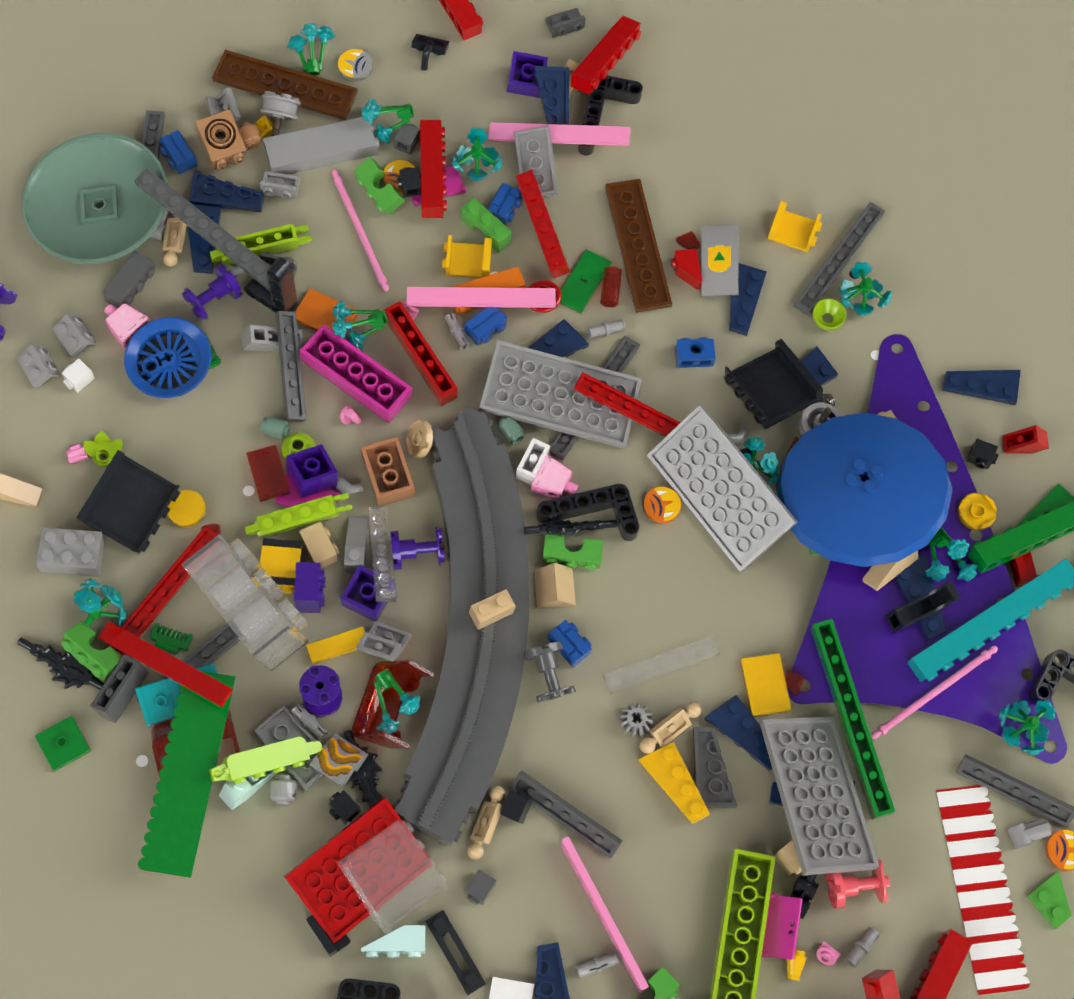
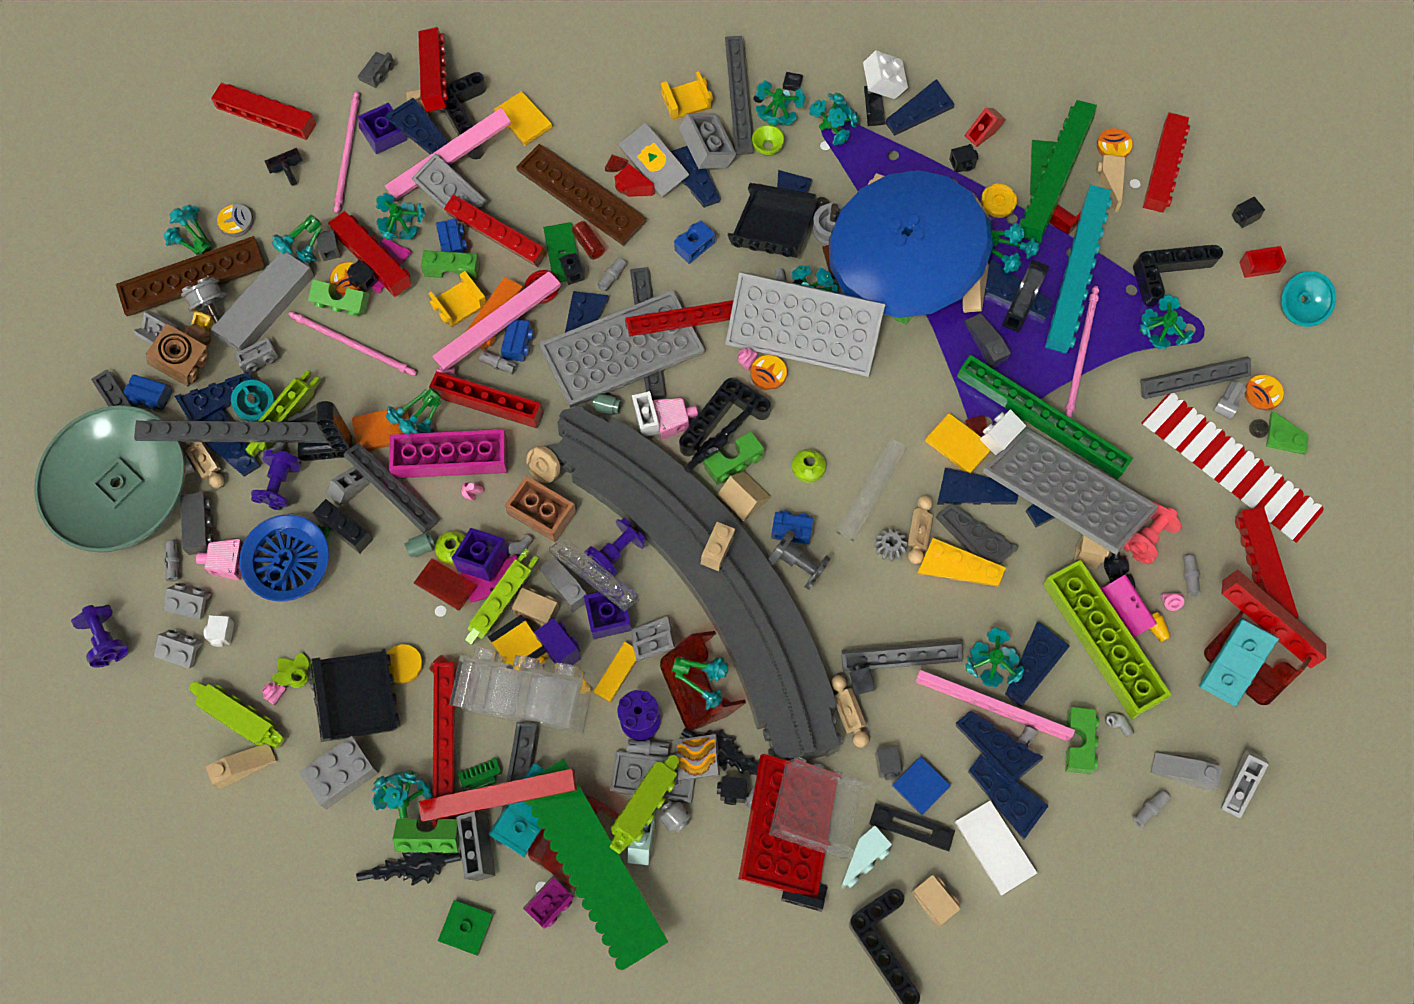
camera: 30 degrees left, 0 degrees up
(35, 449) = (235, 716): none -> lime hinge
(88, 295) = (171, 561): none -> light grey pin
(135, 776) = (548, 903): none -> magenta bracket
(231, 367) = (342, 526): none -> black brick
(246, 217) = (251, 400): none -> teal wheel
(446, 107) = (338, 201): none -> bright pink hose
(491, 927) = (921, 786): none -> blue tile
(577, 300) = (571, 268): none -> black brick
(577, 956) = (1003, 752): none -> dark blue wing
(623, 612) = (808, 473): none -> lime piece
(630, 867) = (1005, 658): none -> teal plant
(647, 148) = (525, 117): none -> yellow tile
(654, 479) = (746, 357): none -> bright pink plate
(671, 908) = (1038, 659): none -> dark blue wing
(776, 277) = (707, 140): none -> light grey brick
(807, 703) = (1002, 433): none -> white brick
(861, 619) = (988, 340): none -> dark grey slope
(895, 281) = (792, 81): none -> black tile
(899, 337) = (837, 116): none -> teal plant
(944, 353) = (874, 108): none -> black panel
(976, 333) = (885, 74): none -> white brick
(1033, 876) = (1259, 428): none -> clear smoke plate

